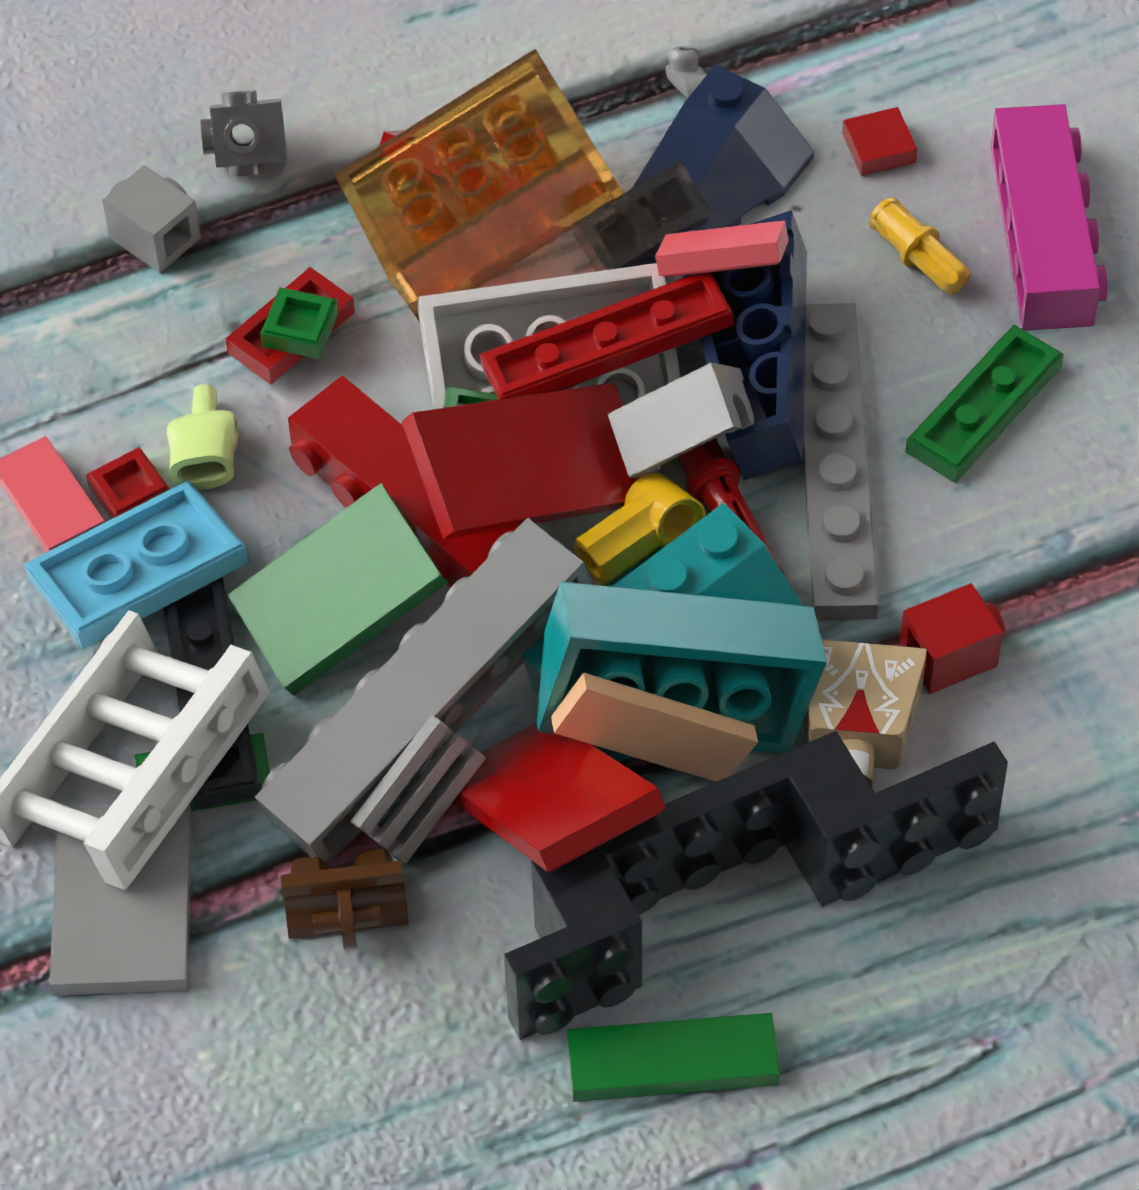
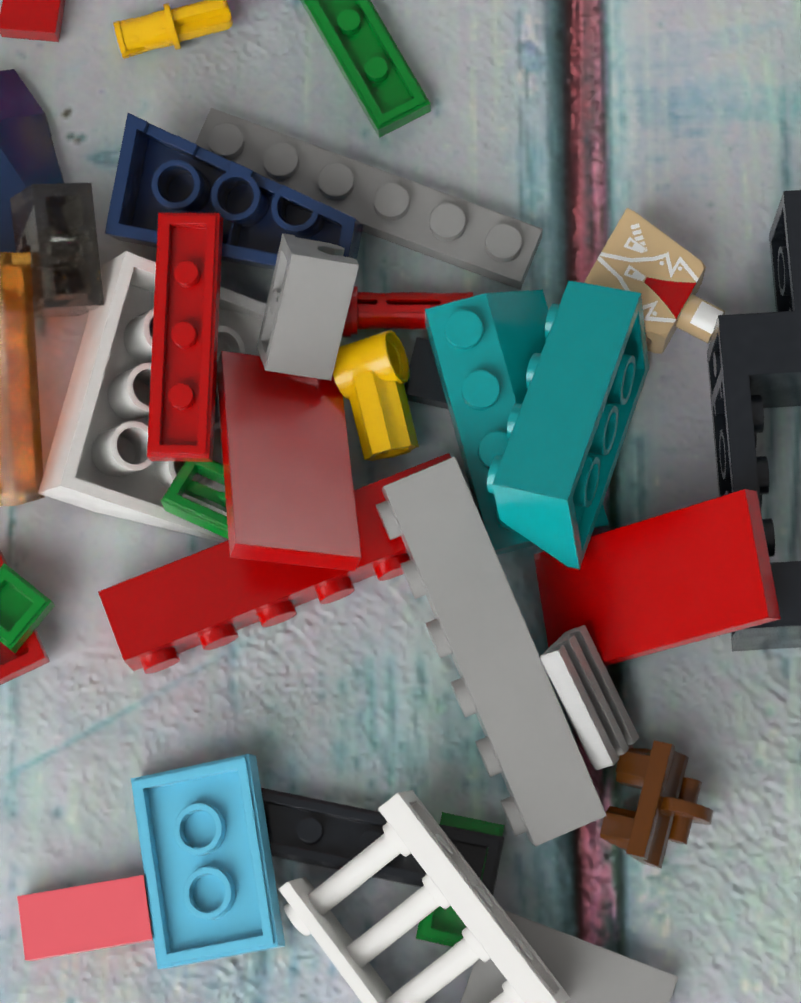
camera: 60 degrees left, 20 degrees up
(126, 483) = (106, 837): red tile -> none
(203, 442) = (92, 749): yellowish green piece -> none
(337, 589) = (330, 687): tile -> none
(653, 728) = (619, 469): light nougat tile -> none
(722, 249) = (147, 190): coral tile -> none
(958, 634) = (605, 180): red brick -> none

